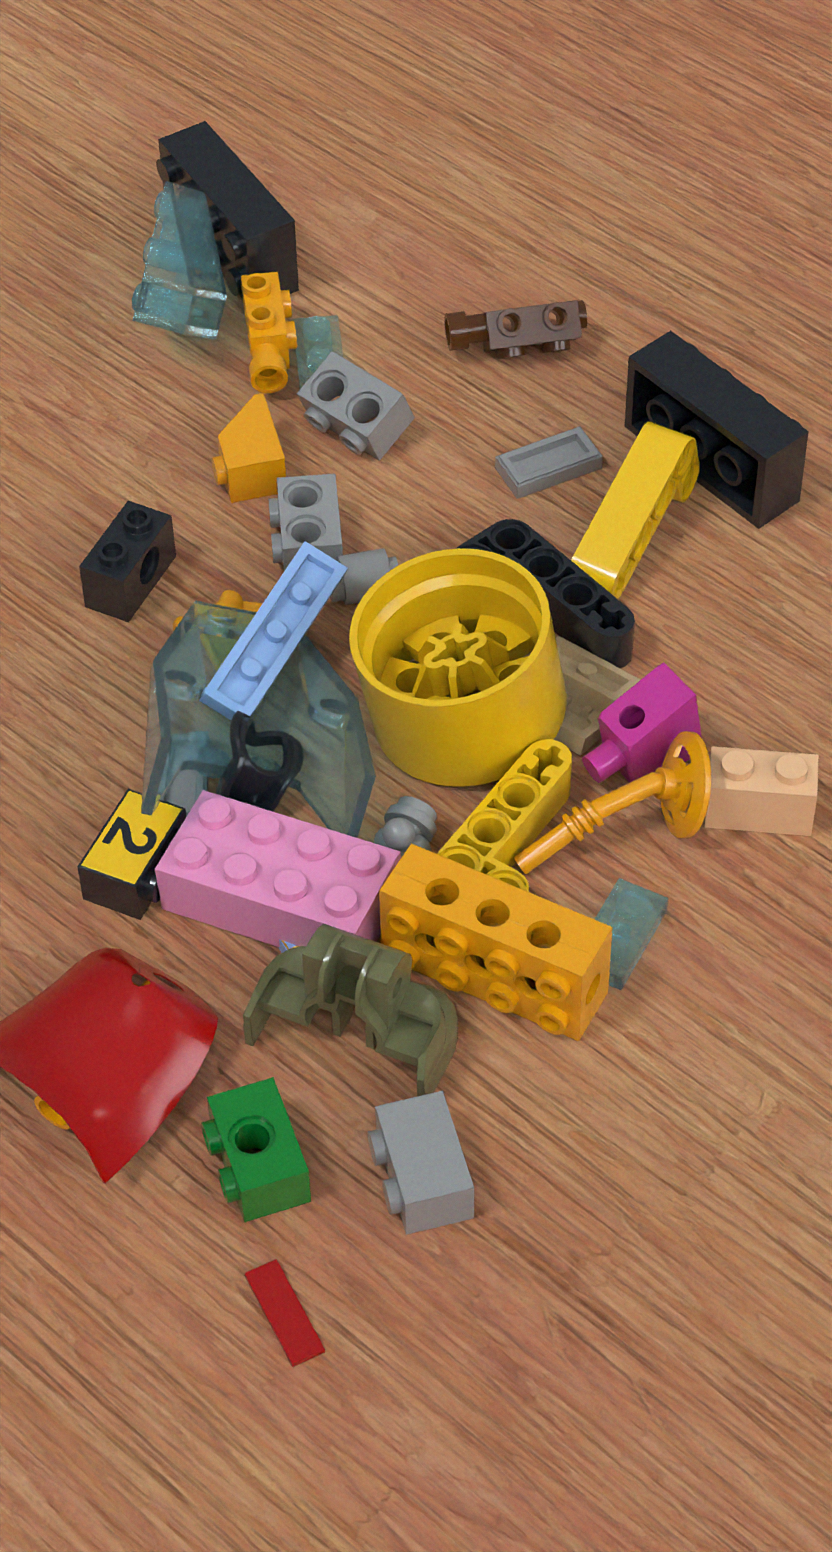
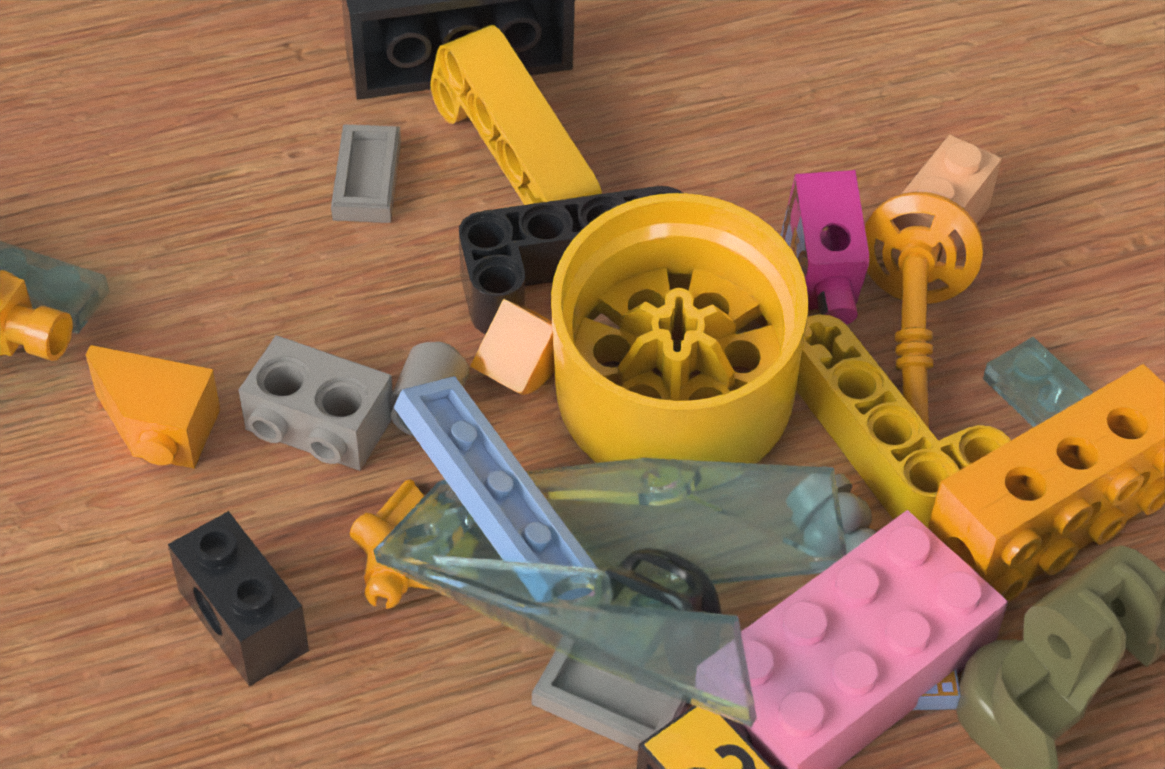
camera: 65 degrees left, 0 degrees up
(359, 400) = (164, 264): light grey brick -> none
(528, 327) = (170, 104): reddish brown brick -> none

